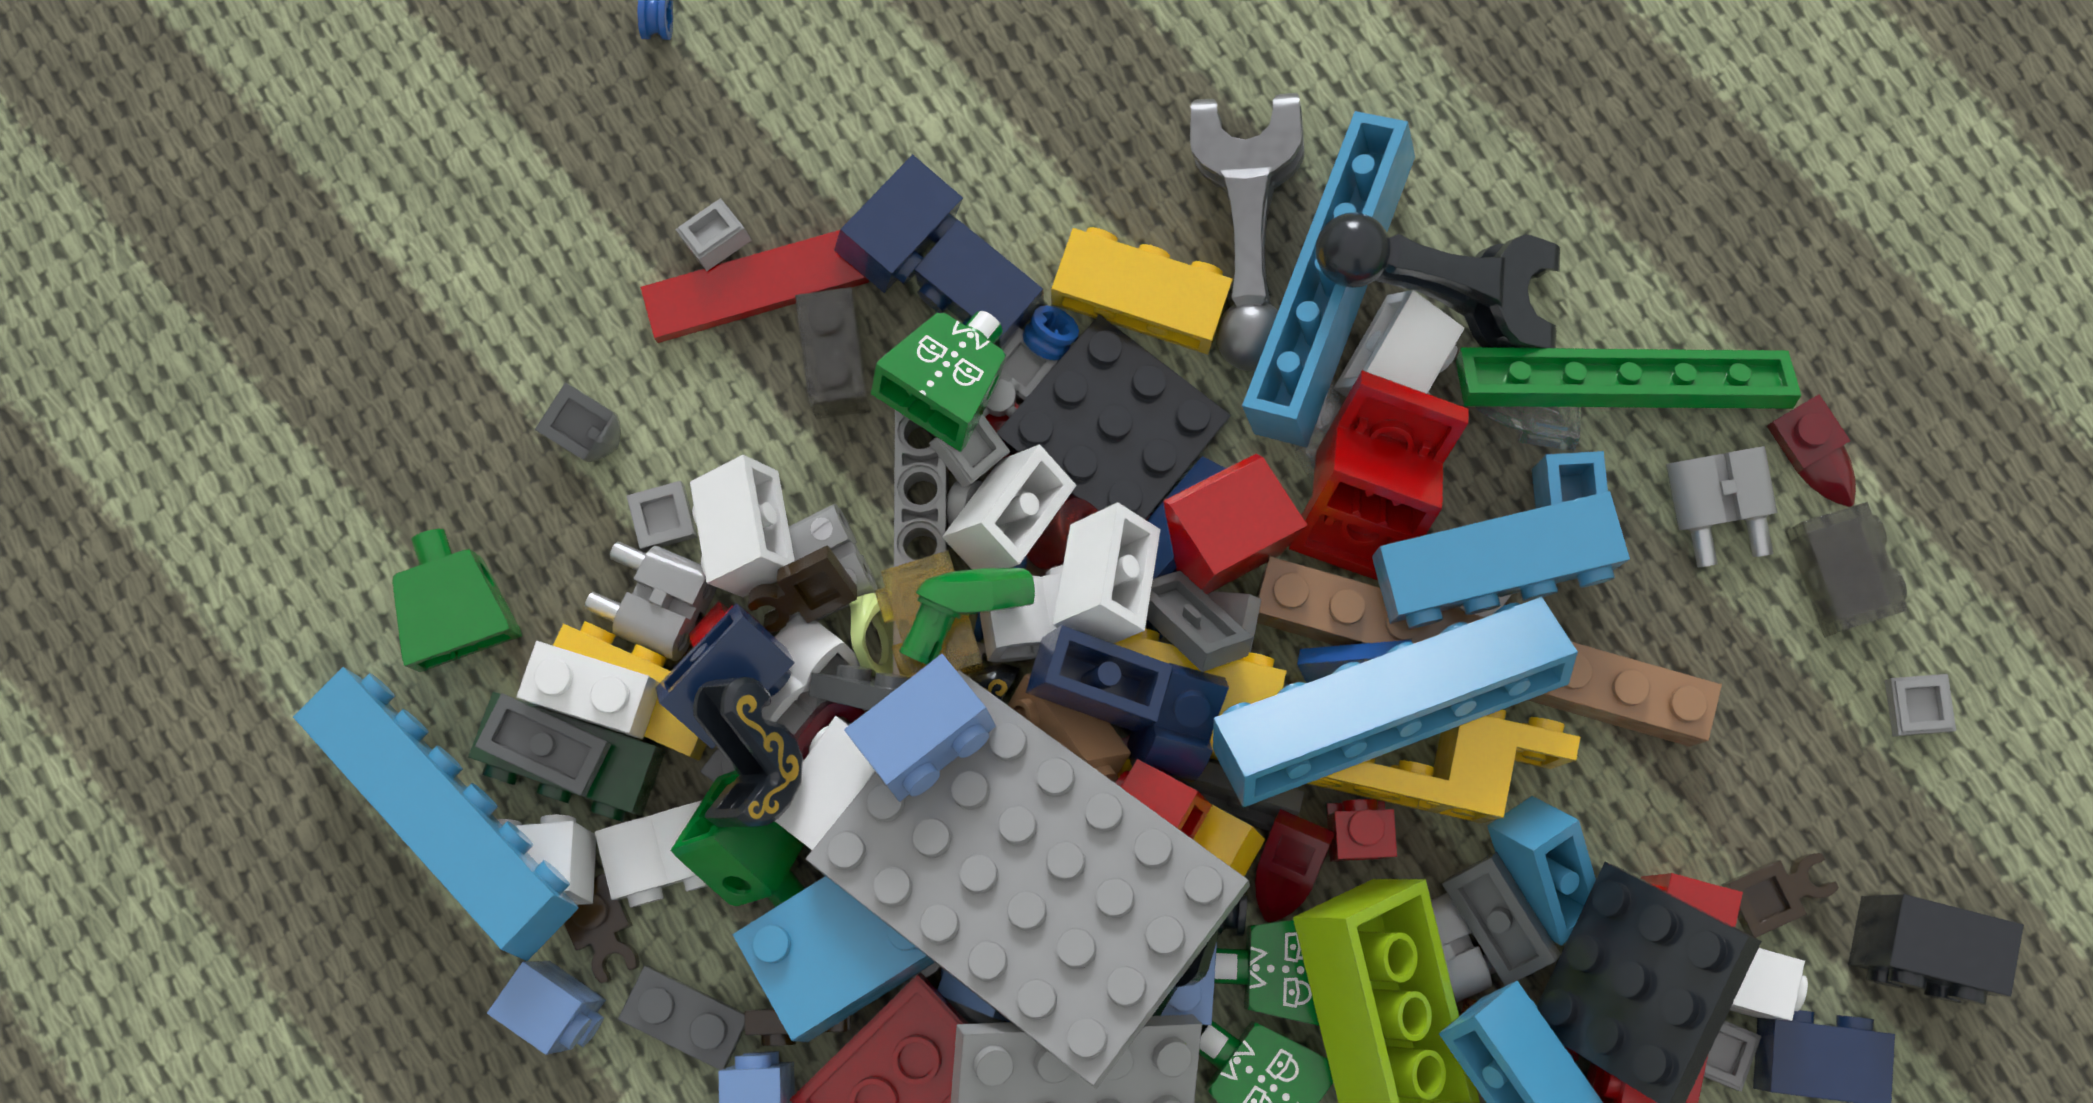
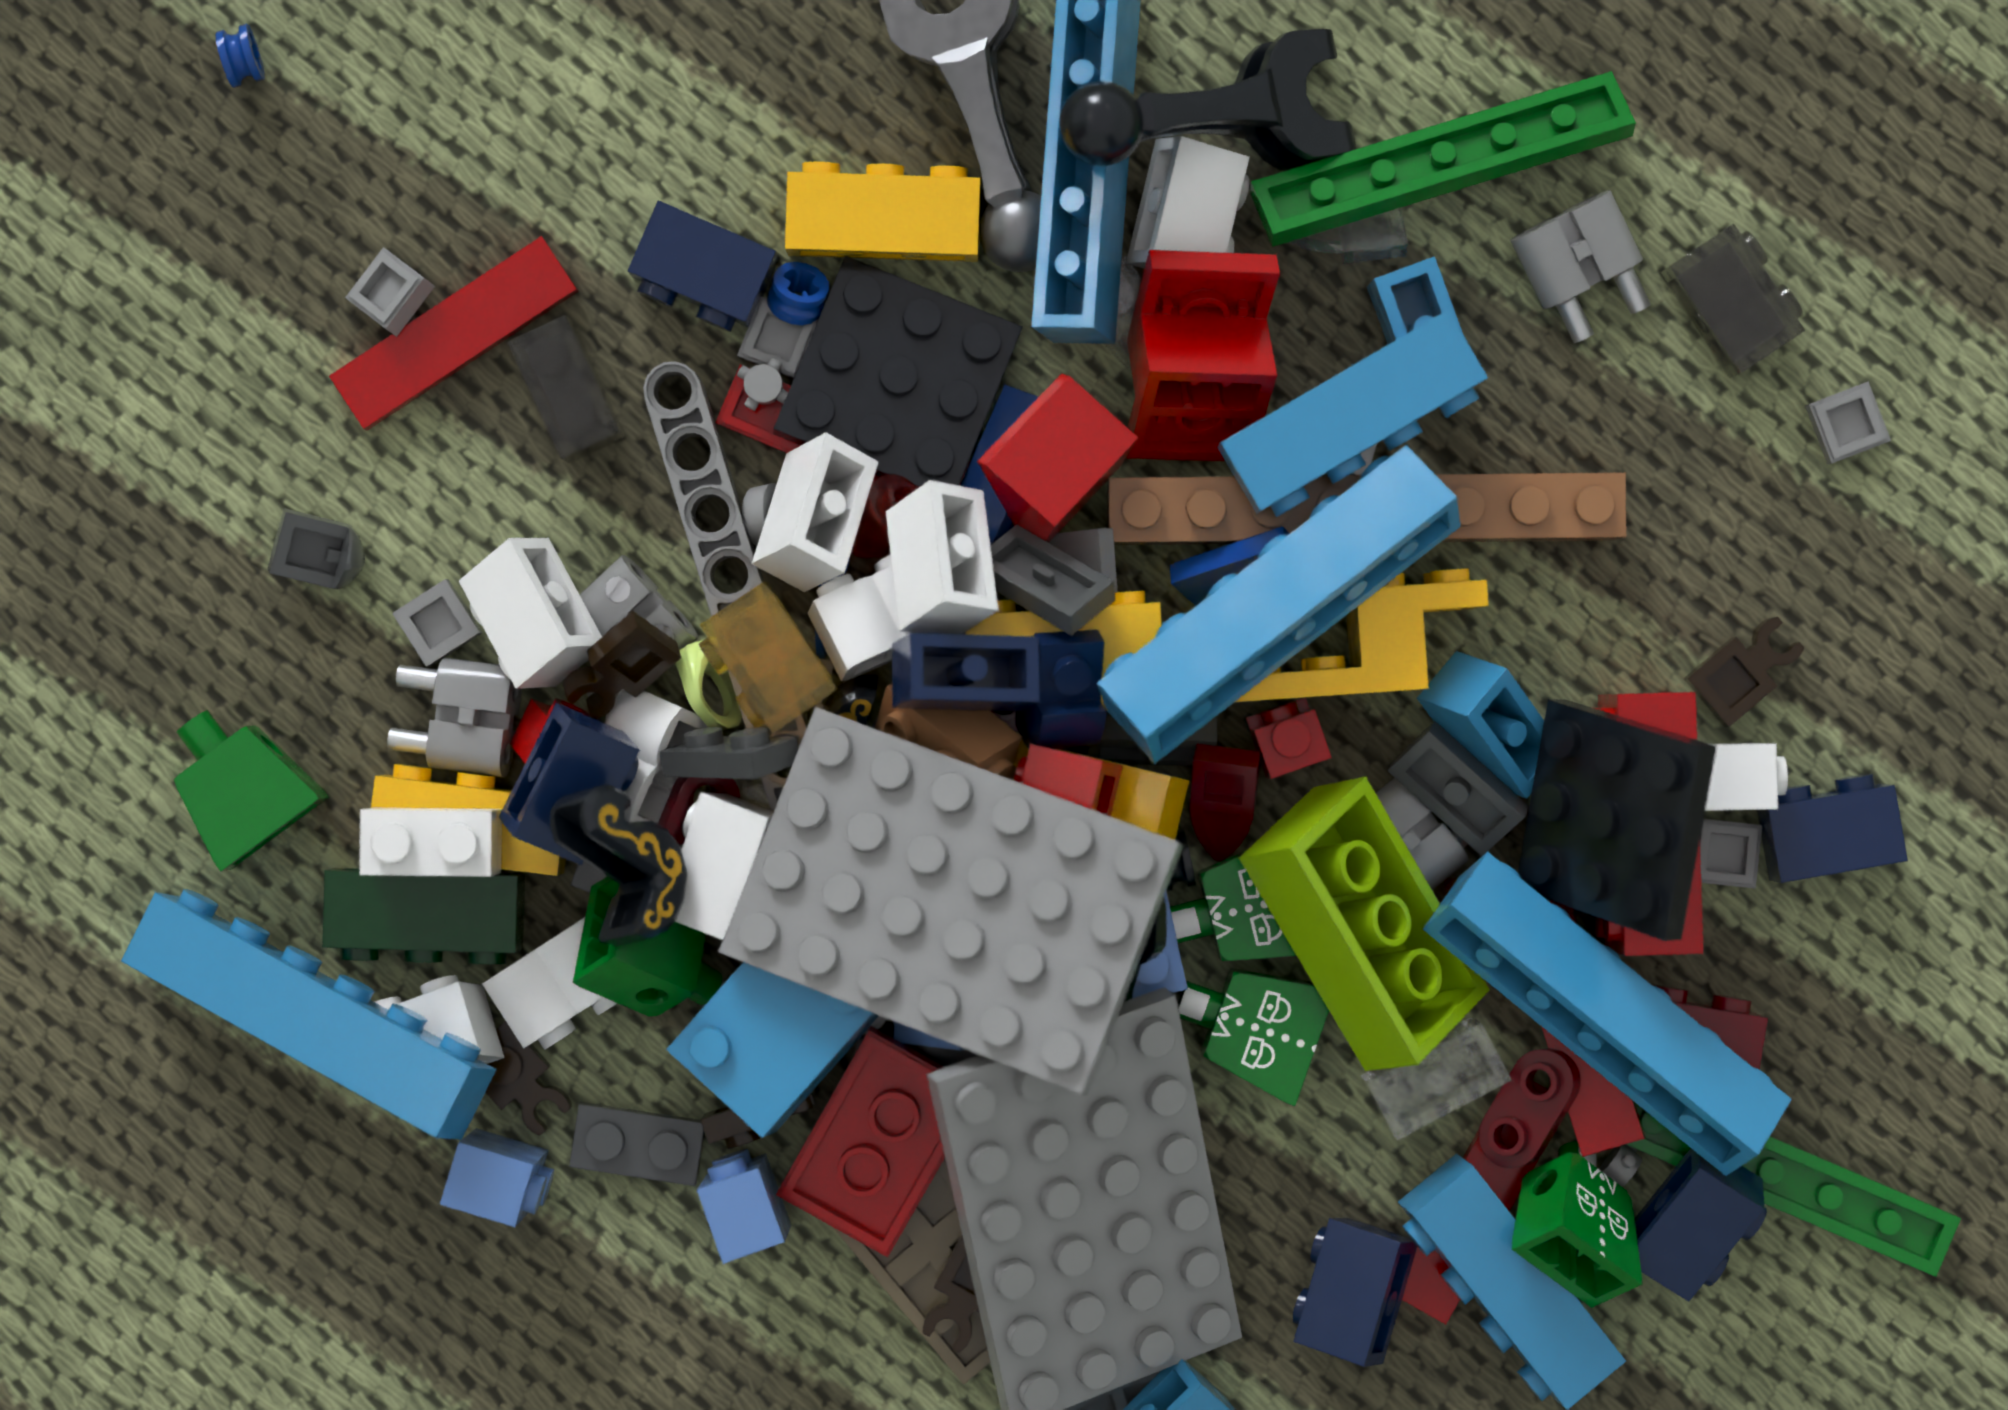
camera: 20 degrees left, 10 degrees up
(543, 745) = (400, 912): dark grey plate -> none
(898, 225) = (593, 223): dark blue brick -> none
(922, 729) = (798, 786): medium blue brick -> none
(943, 375) = (699, 386): green torso -> none
(961, 594) = (796, 627): green arm -> none
(978, 456) = (749, 452): light grey tile -> none
(1817, 449) = (1672, 172): dark red plate -> none
(1935, 948) = (1908, 681): black brick -> none

